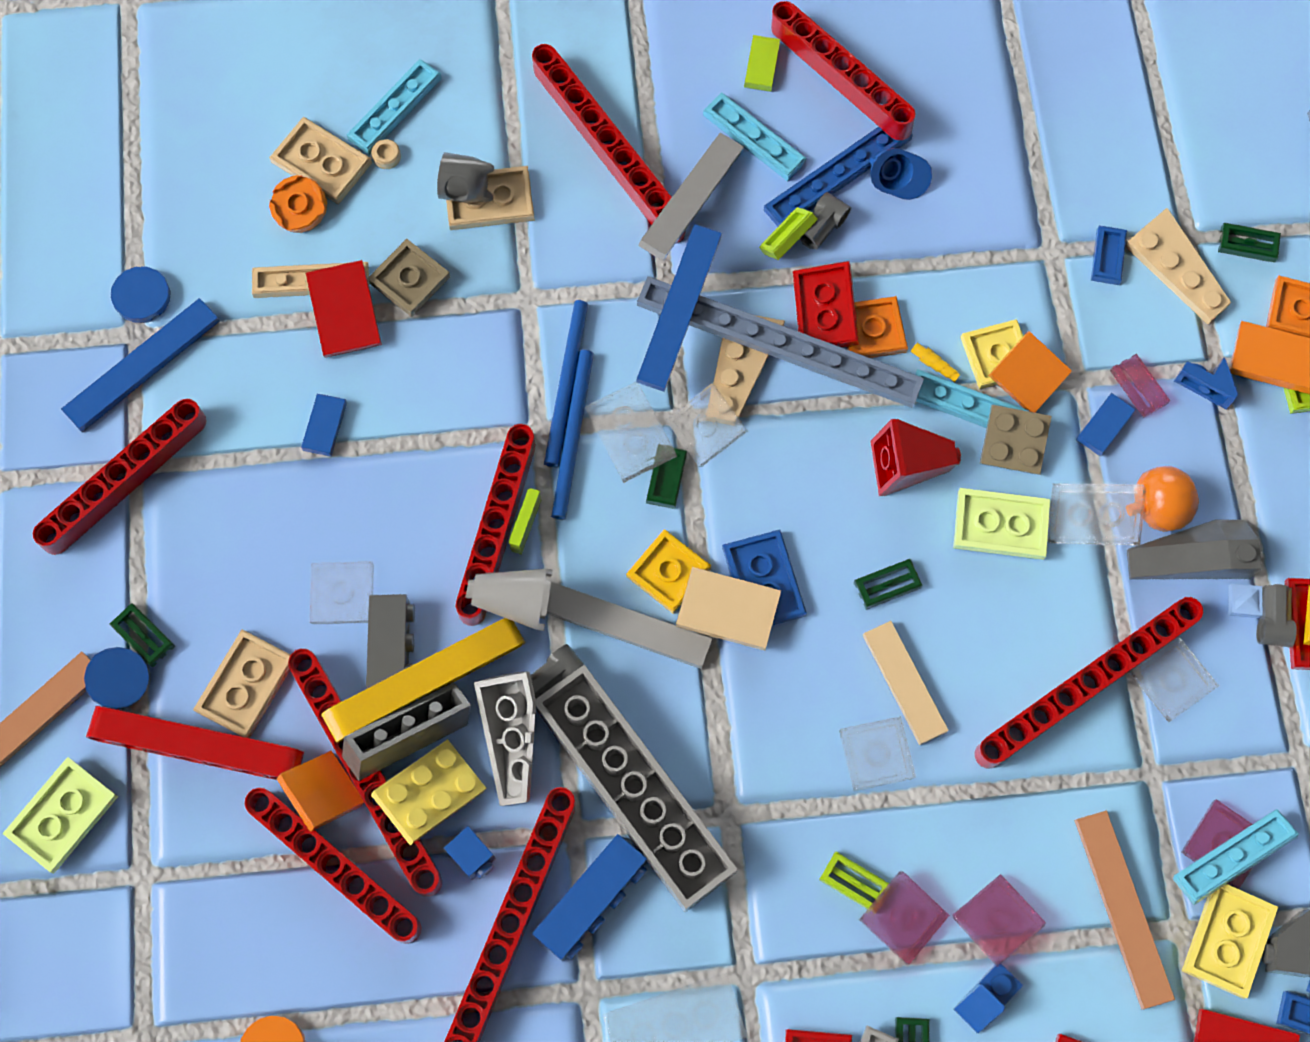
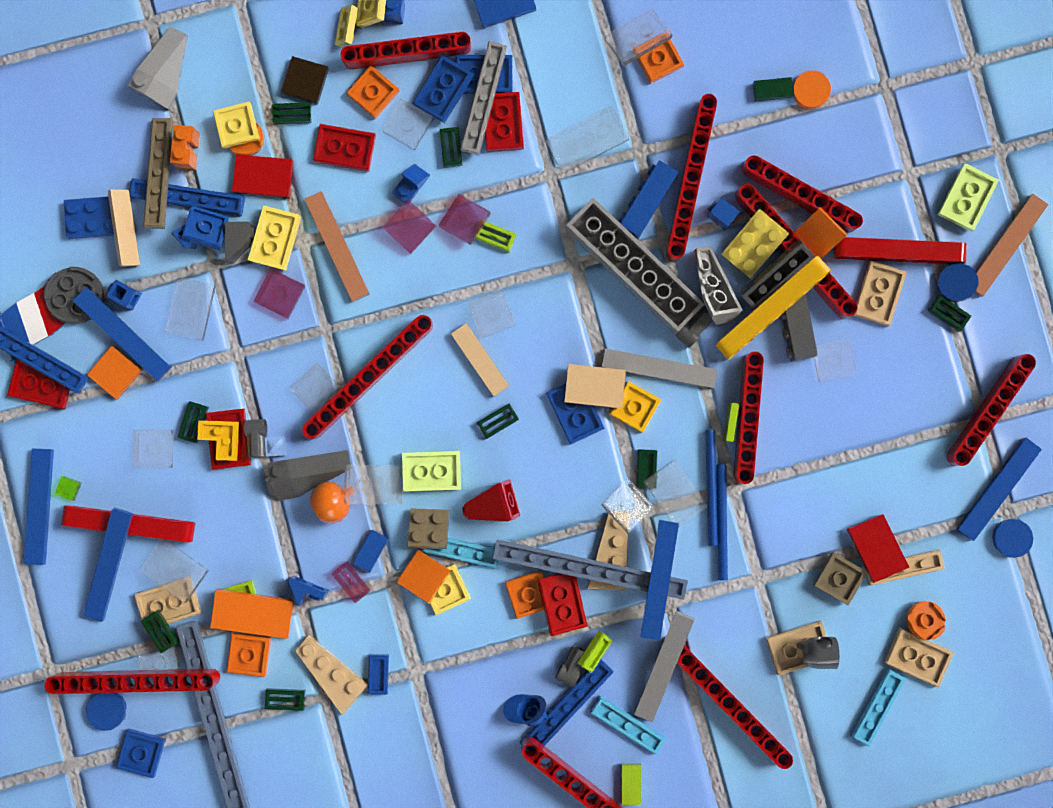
camera: 175 degrees right, 15 degrees up
(324, 425) = (871, 467): blue tile -> none
(386, 154) = (875, 669): tan tile -> none
(513, 595) = (729, 367): light grey cone -> none
(934, 361) = (485, 576): yellow animal -> none
(1235, 856) = (274, 284): medium azure tile -> none

